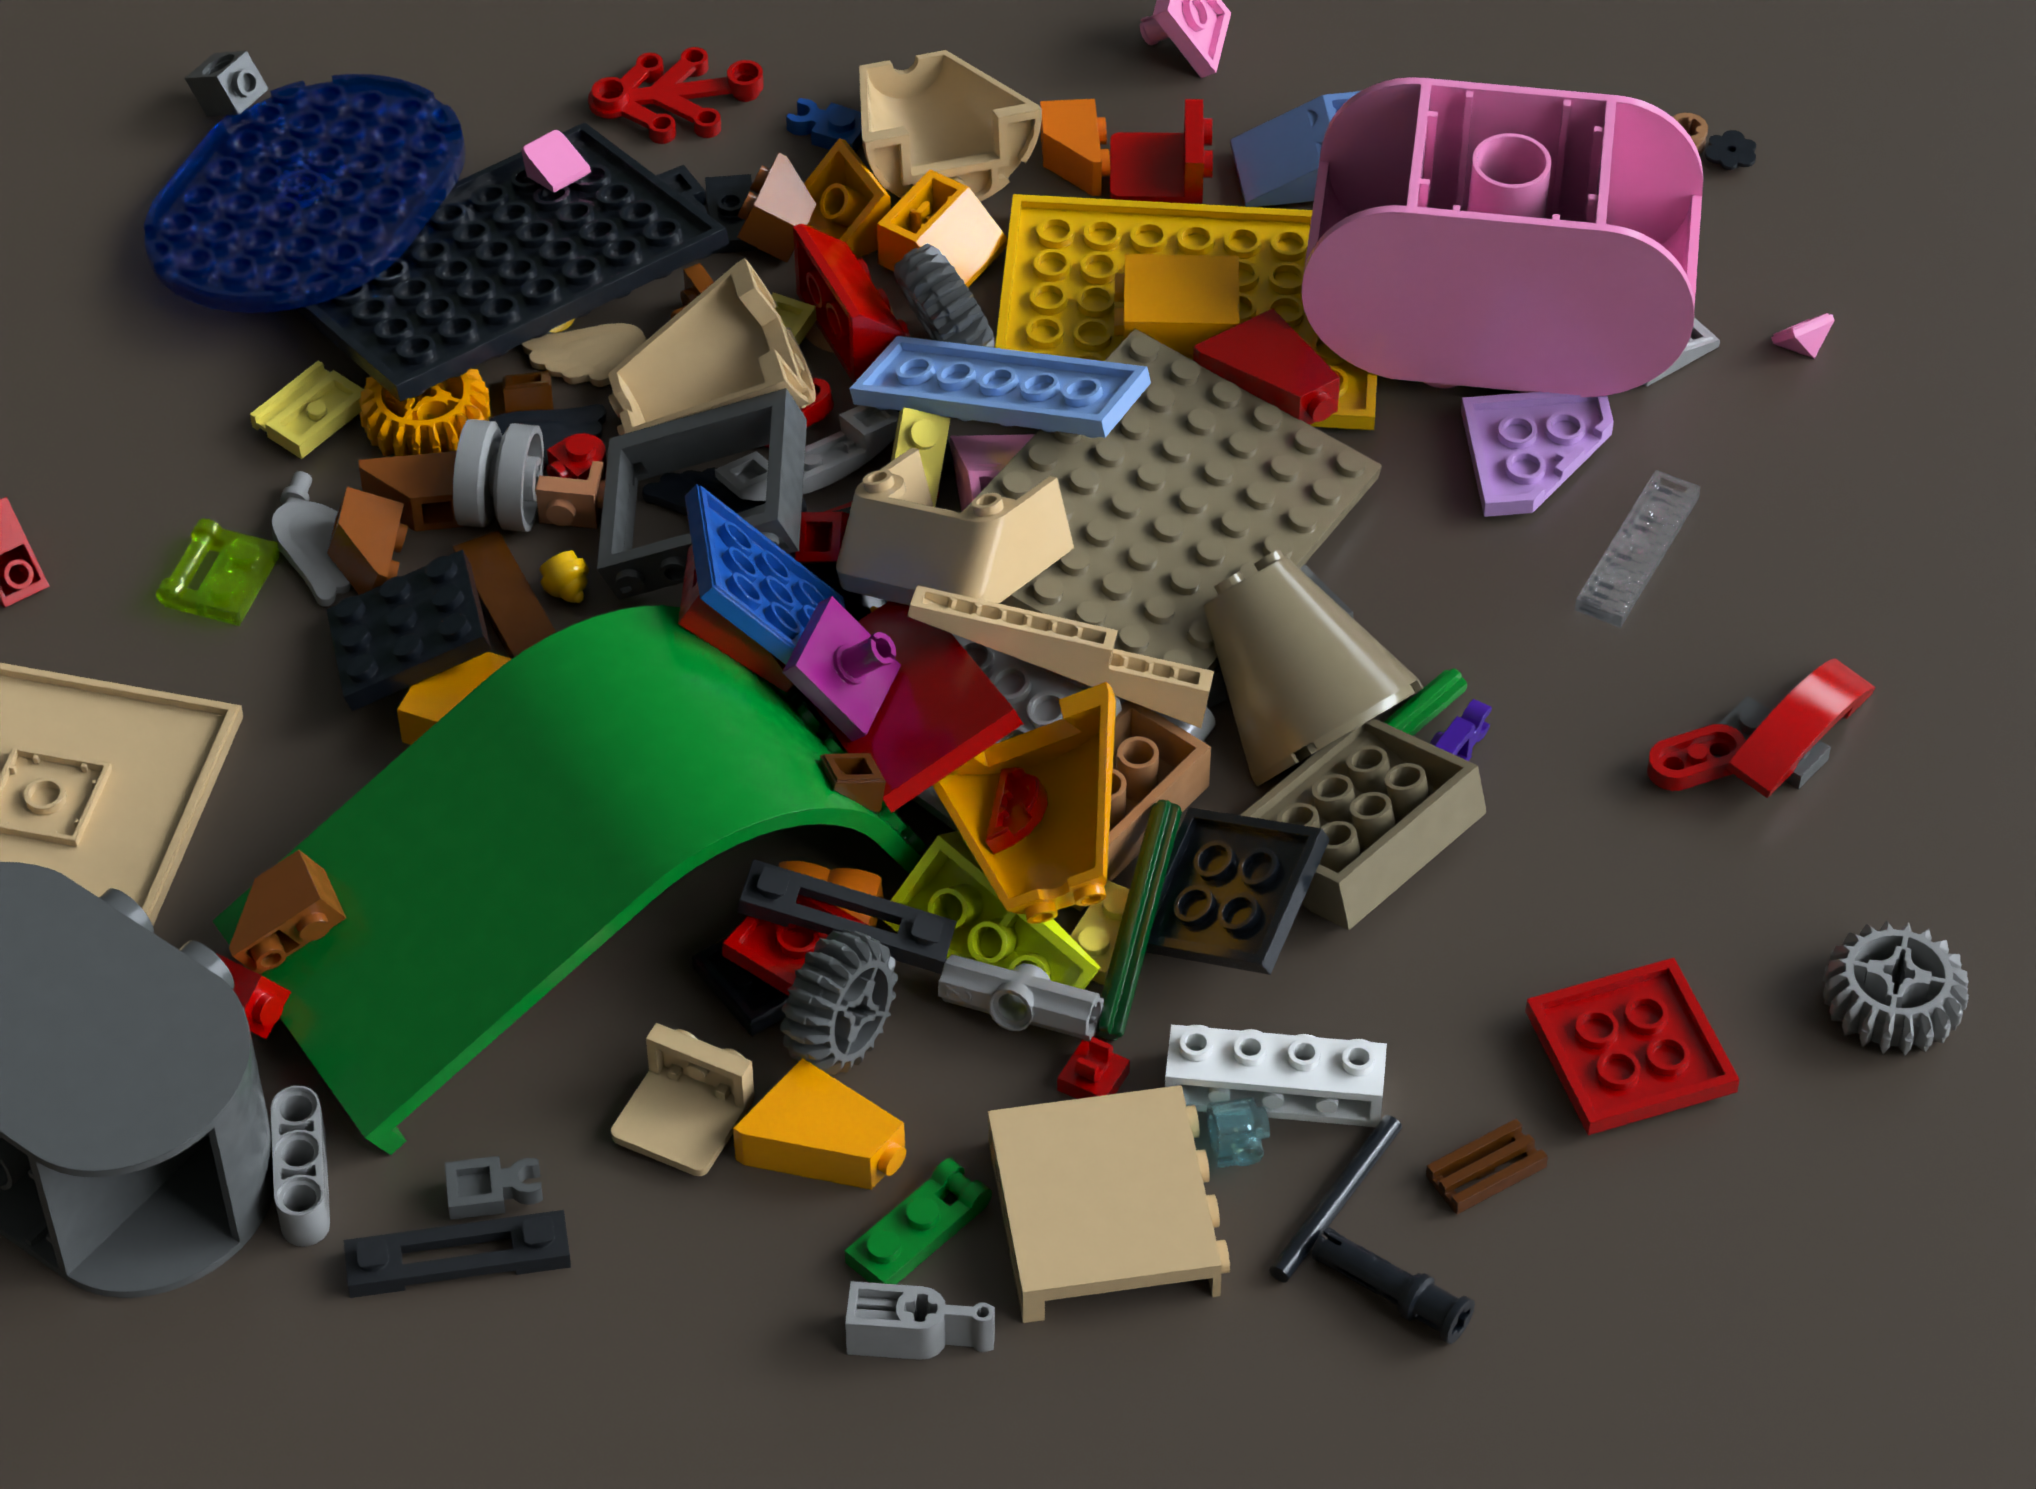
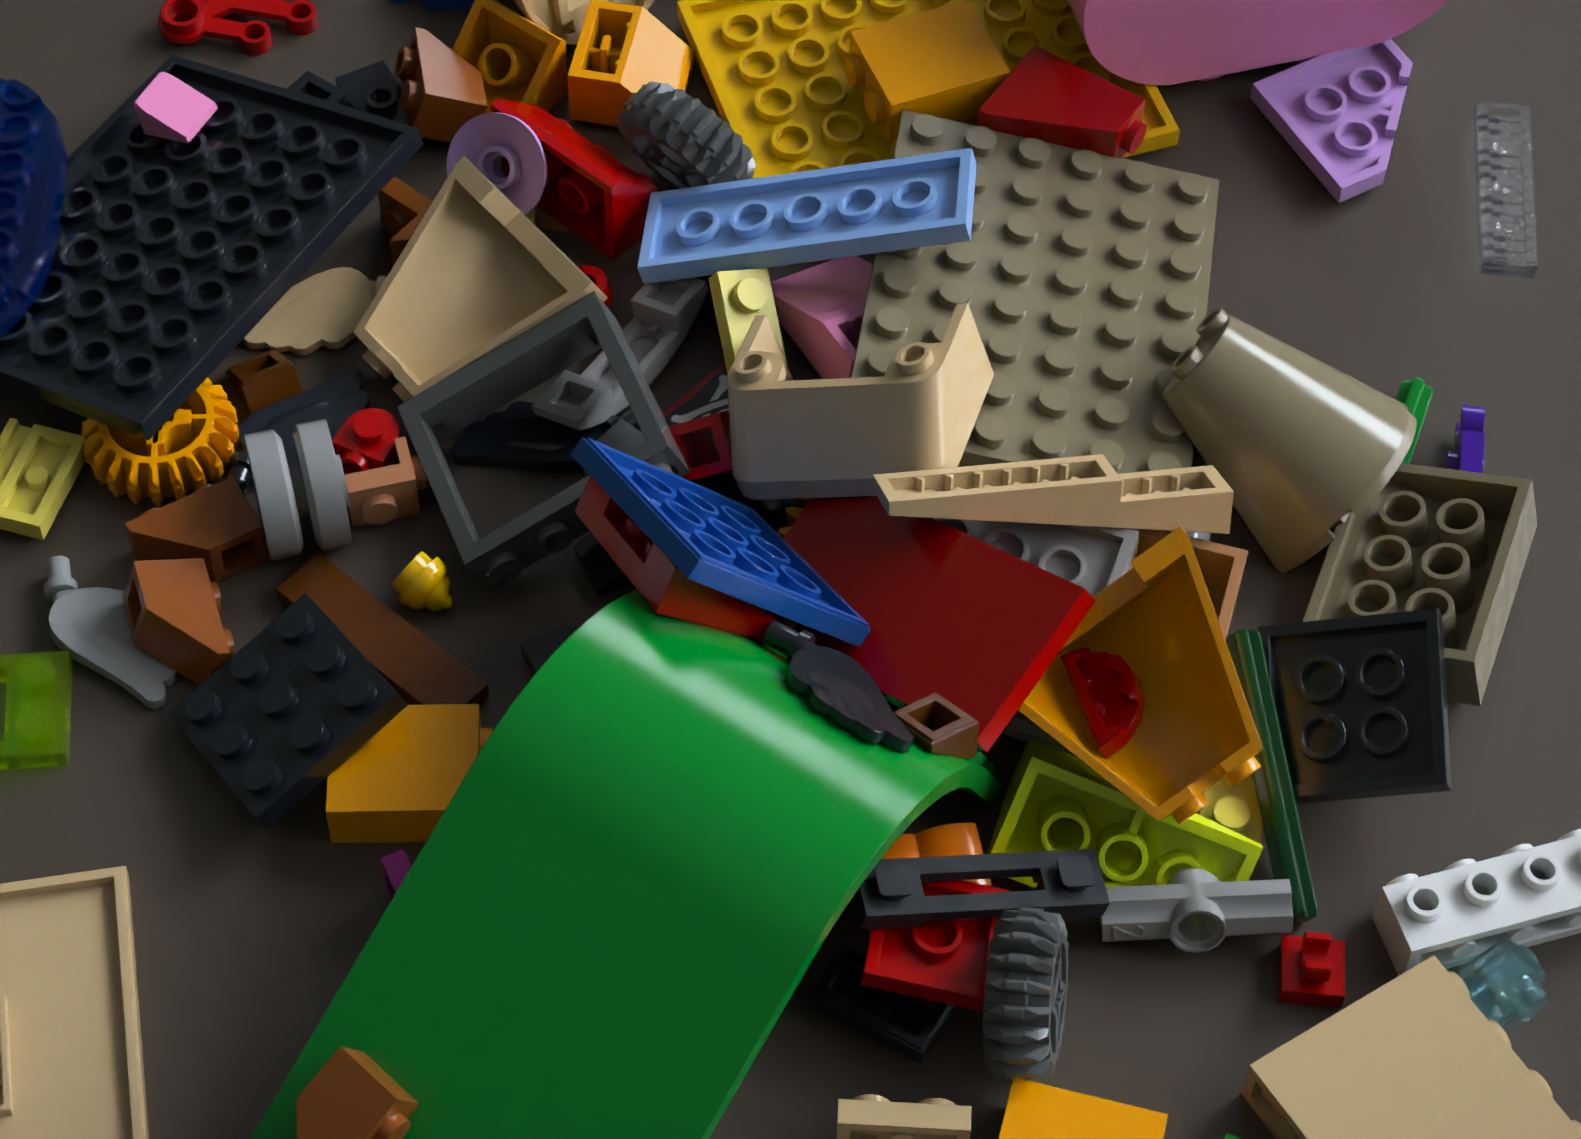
camera: 25 degrees left, 5 degrees up
(787, 271) = (500, 135): none -> lavender dish
(790, 722) = (838, 687): none -> black animal
(843, 668) = (847, 597): magenta tile -> none

